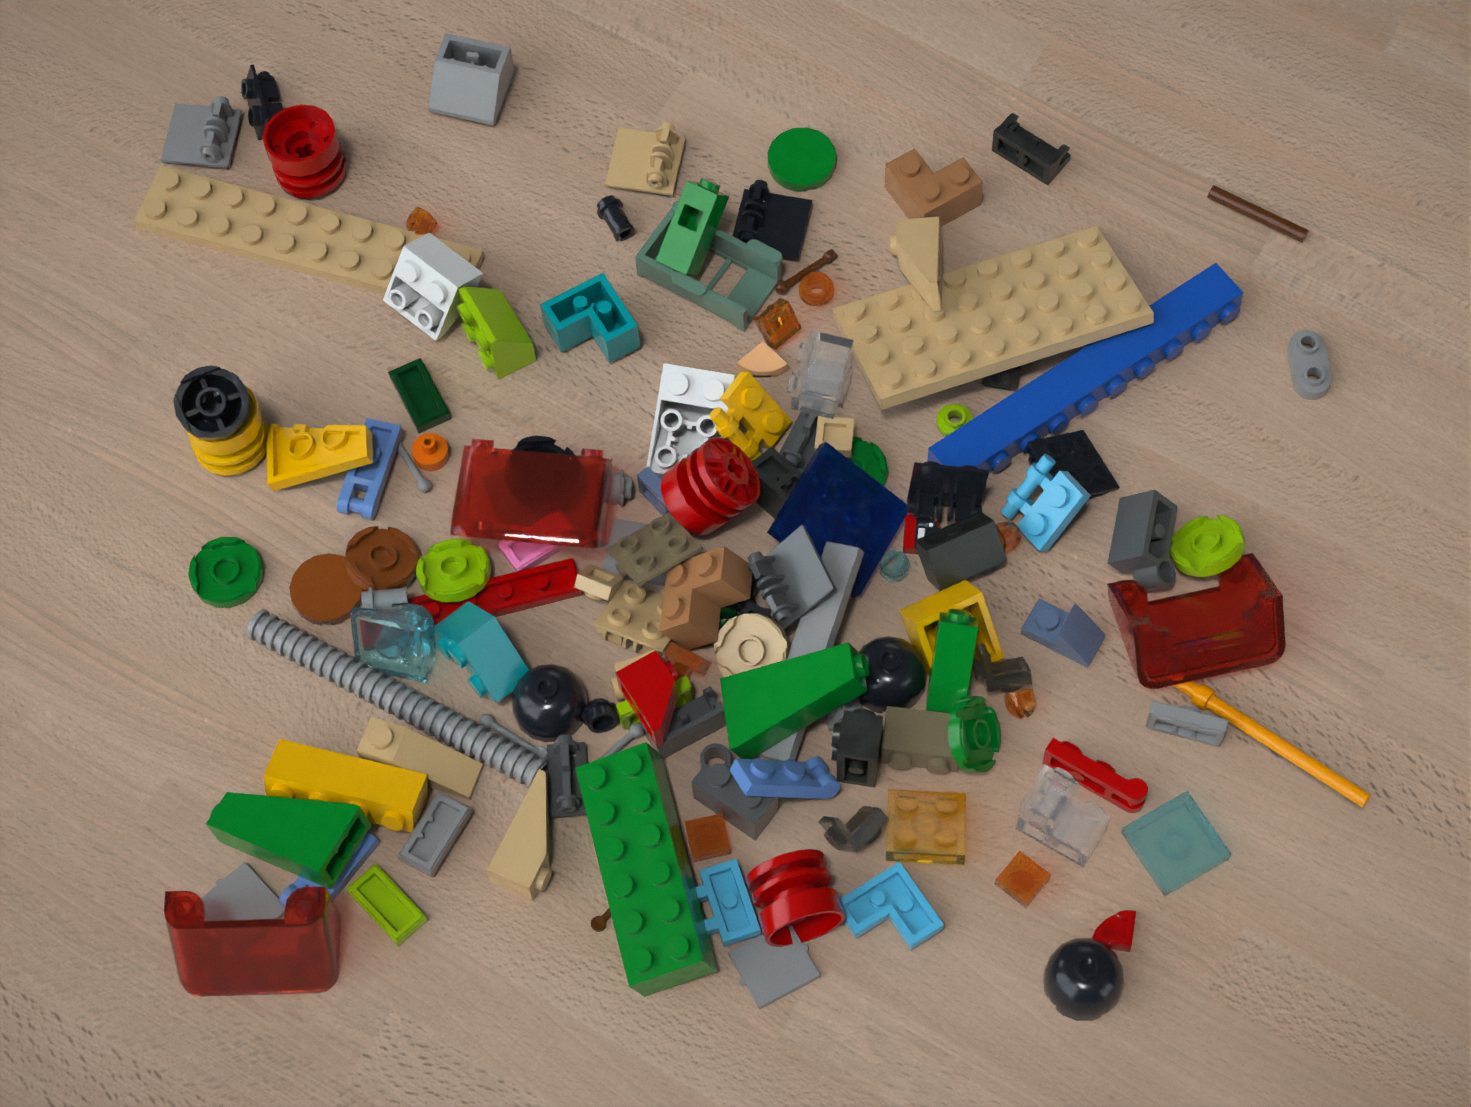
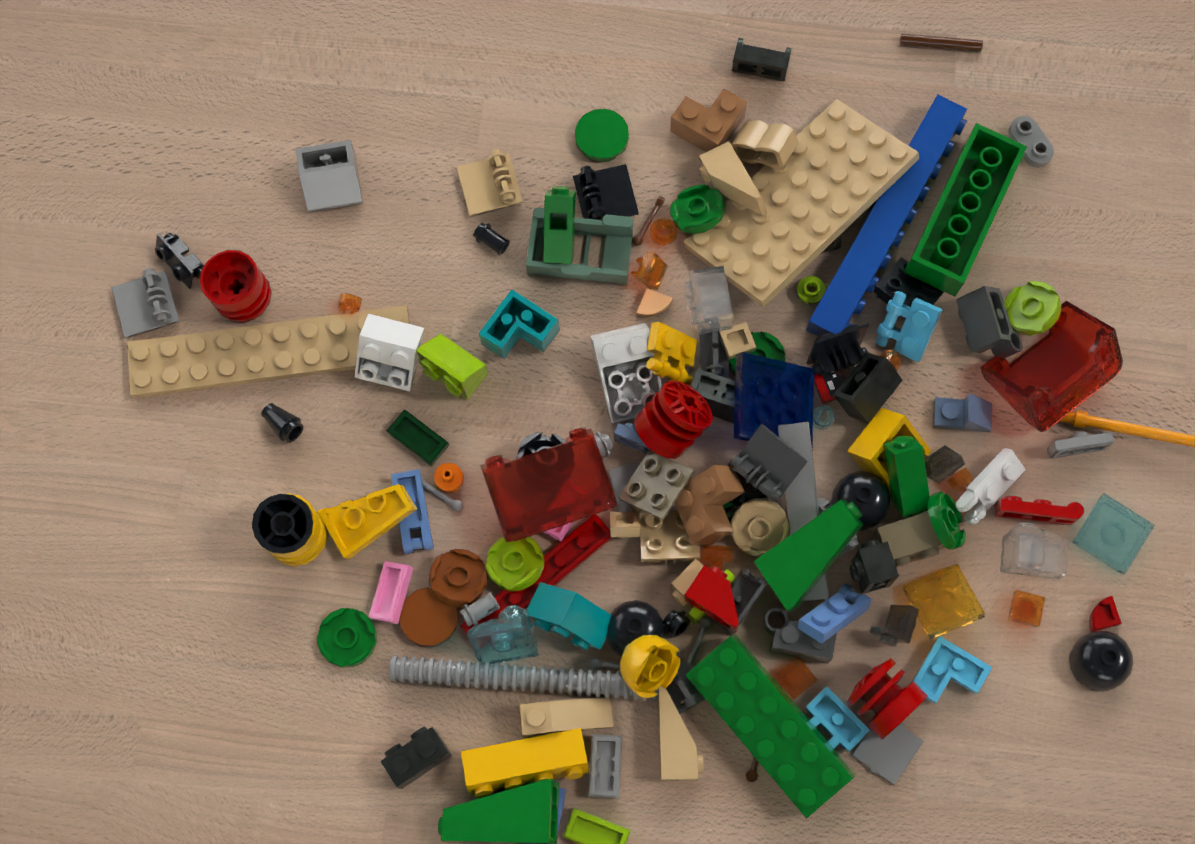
camera: 25 degrees left, 10 degrees up
(229, 728) = (416, 757): none -> pearl dark grey brick
(280, 317) = (282, 422): none -> black cone
(299, 543) = (390, 592): none -> bright pink tile
(537, 734) = (649, 664): none -> yellow cylinder
(867, 279) = (698, 209): none -> green tile
(981, 237) = (765, 143): none -> tan brick
(1054, 719) = (990, 485): none -> white hinge
(1180, 401) = (965, 210): none -> green brick

